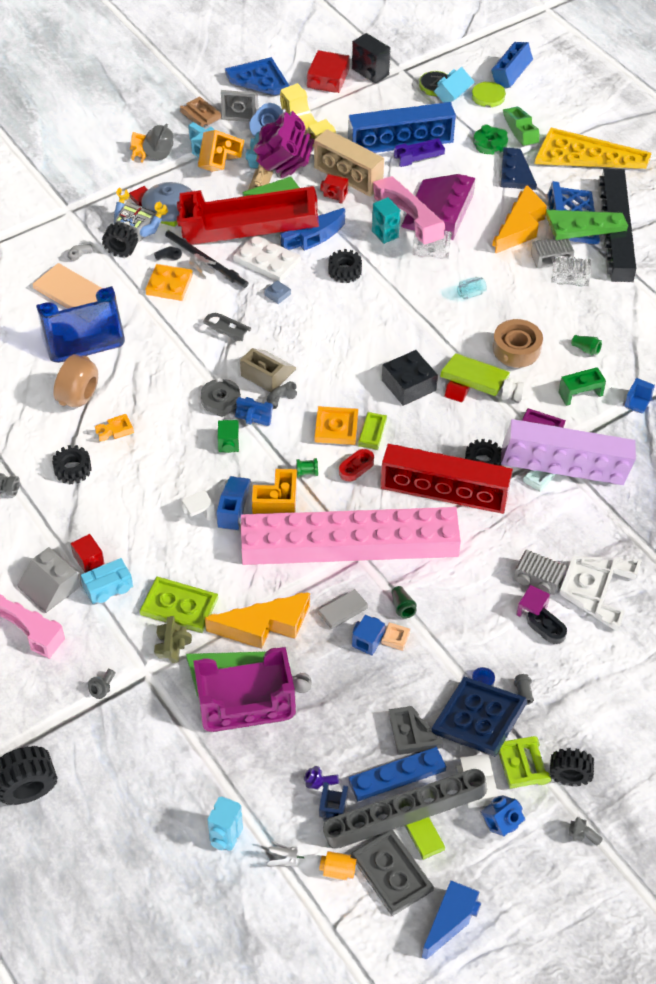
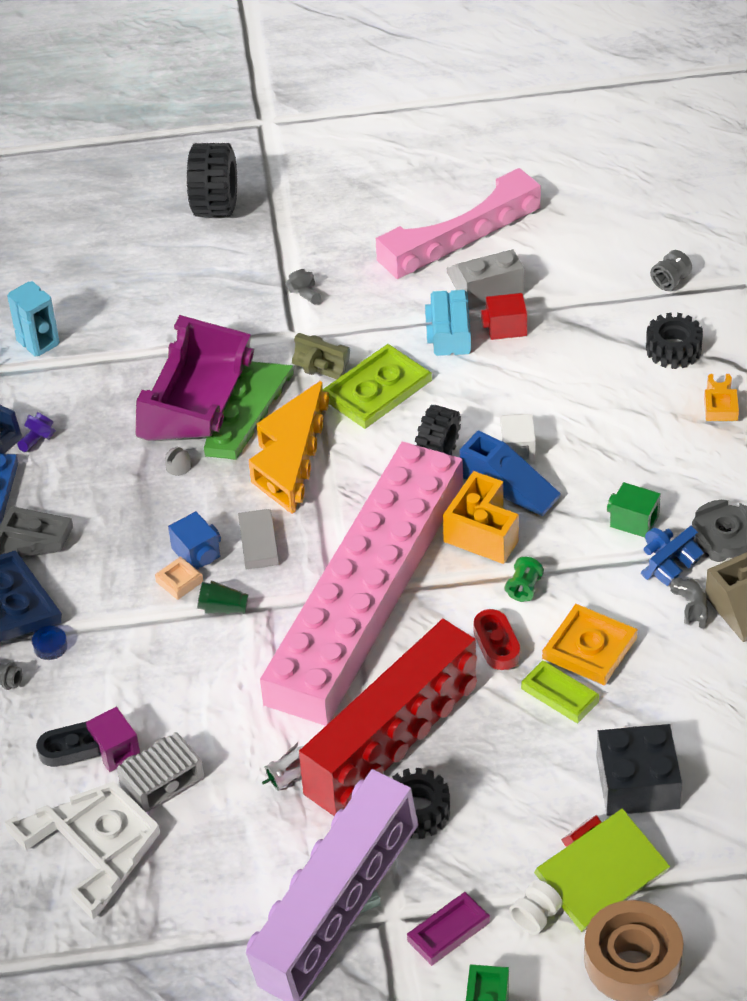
camera: 120 degrees right, 5 degrees down
(221, 540) = (439, 429): none -> black tyre
(499, 519) = (285, 769): none -> flat silver piece

